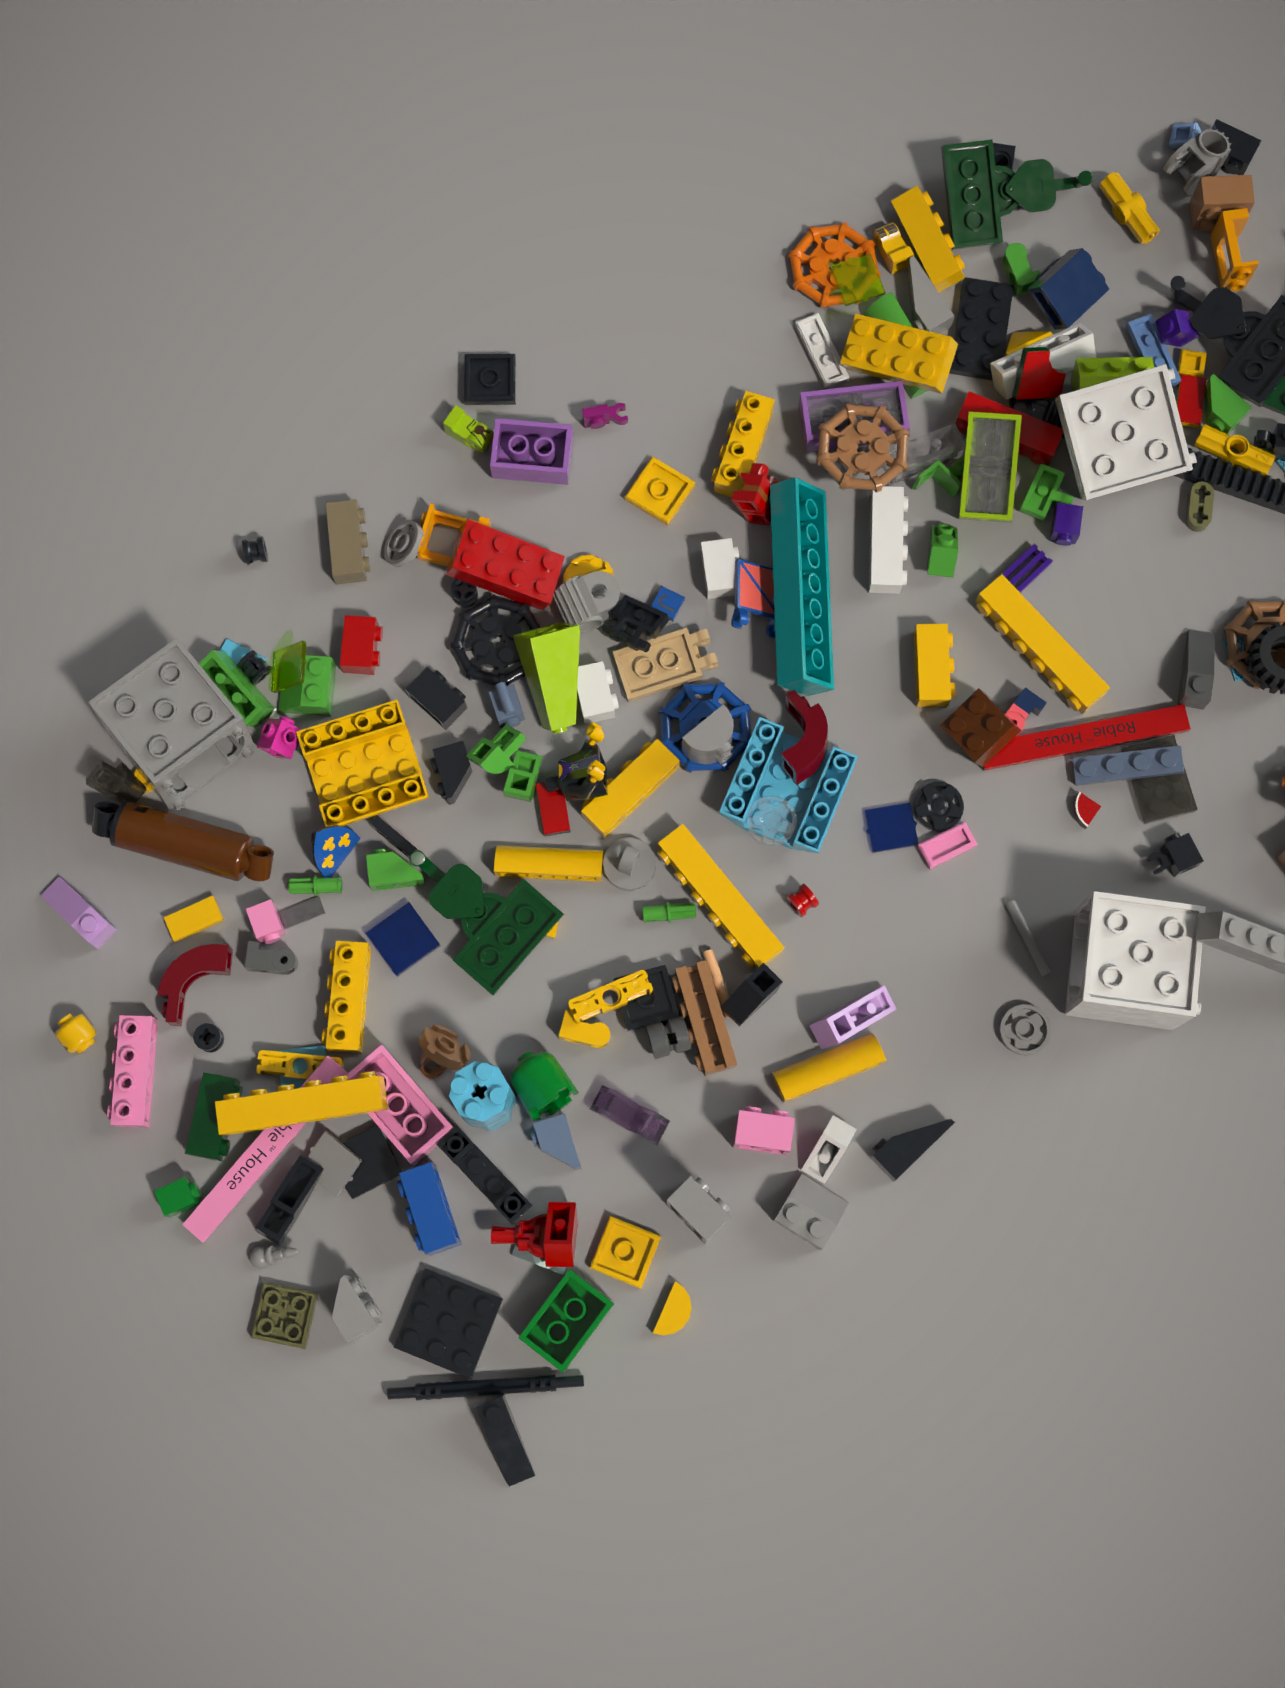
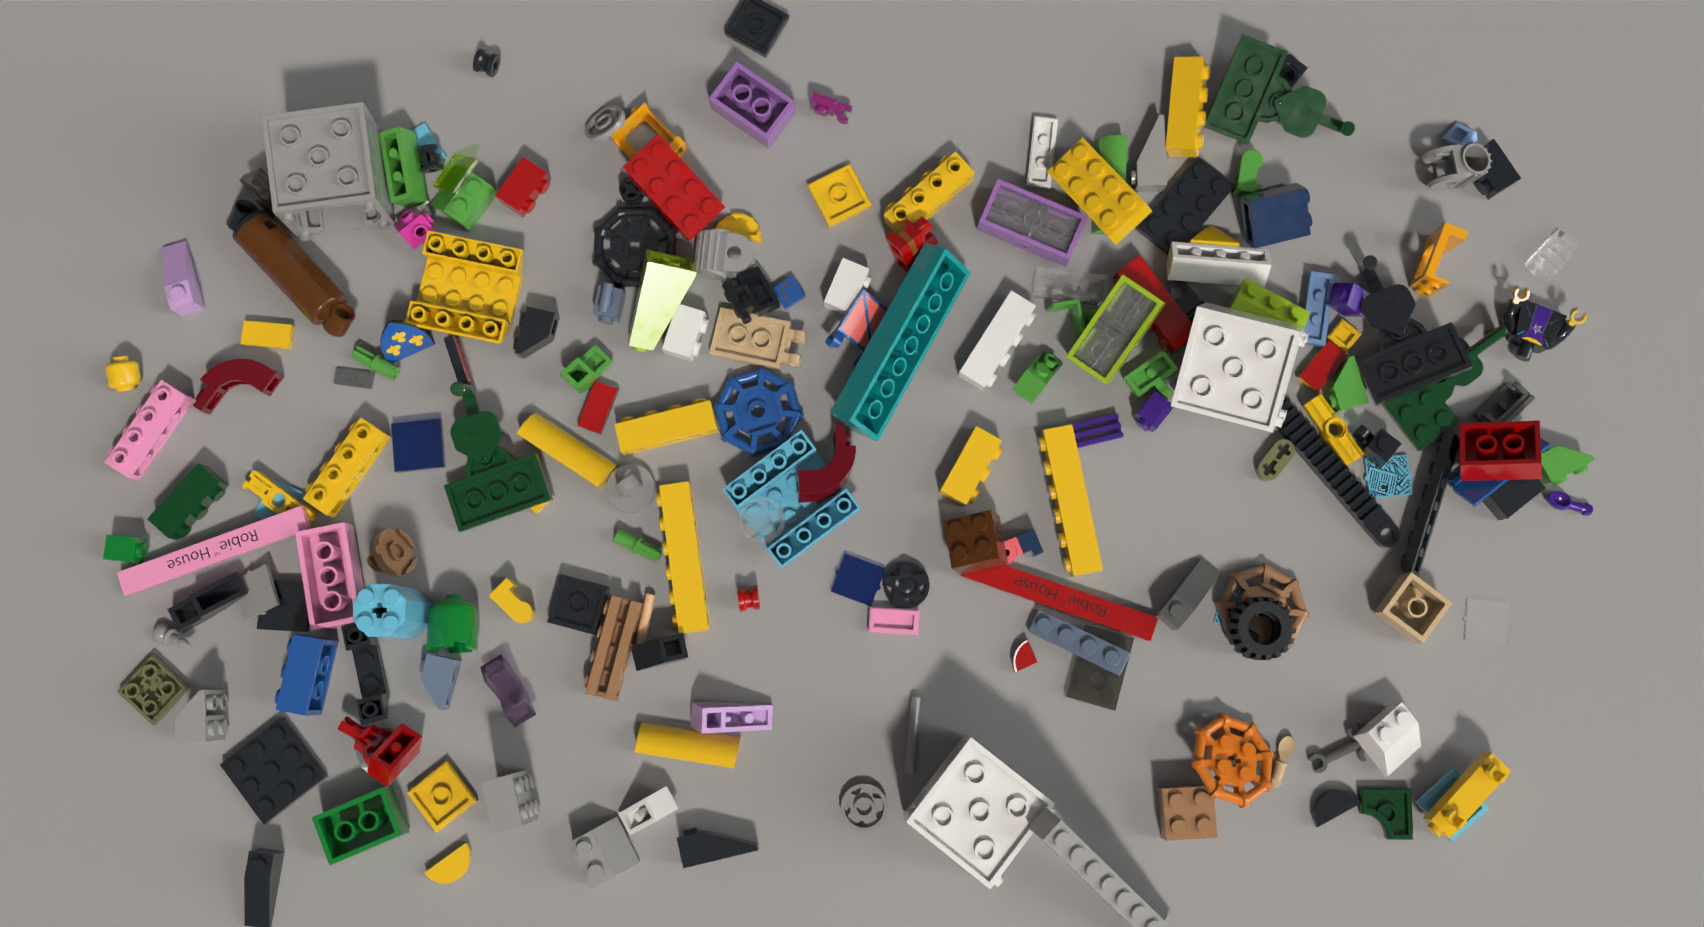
camera: 30 degrees right, 5 degrees up
(212, 1041) = (227, 439): black wheel -> none
(266, 922) = (319, 370): bright pink brick -> none
(267, 961) = (309, 407): dark grey leg -> none
(301, 1105) = (252, 535): yellow brick -> none
(347, 541) = (563, 96): dark tan brick -> none
(390, 871) = (436, 384): bright green slope -> none
(436, 697) = (558, 265): black brick -> none
(467, 430) = (713, 57): lime leg -> none
(485, 1387) = (271, 837): black axle -> none
(495, 754) = (572, 339): bright green brick -> none
(583, 773) = (635, 394): torso -> none
(592, 1002) = (530, 586): yellow piece -> none
(659, 1040) = (566, 646): dark grey wheel -> none
(710, 739) = (750, 426): light grey brick -> none
(764, 1131) = (601, 767): bright pink brick -> none
(819, 260) = (1101, 73): orange plate -> none
(858, 279) = (1106, 109): clear neon green piece -> none
(864, 433) = (1028, 243): medium nougat plate -> none
(892, 247) = (1153, 97): yellow leg -> none
(1036, 375) = (1203, 275): red tile -> none
(1129, 208) = (1373, 174): yellow piece -> none
(1178, 854) = (1075, 739): black brick -> none
(1218, 195) = (1454, 207): medium nougat brick -> none

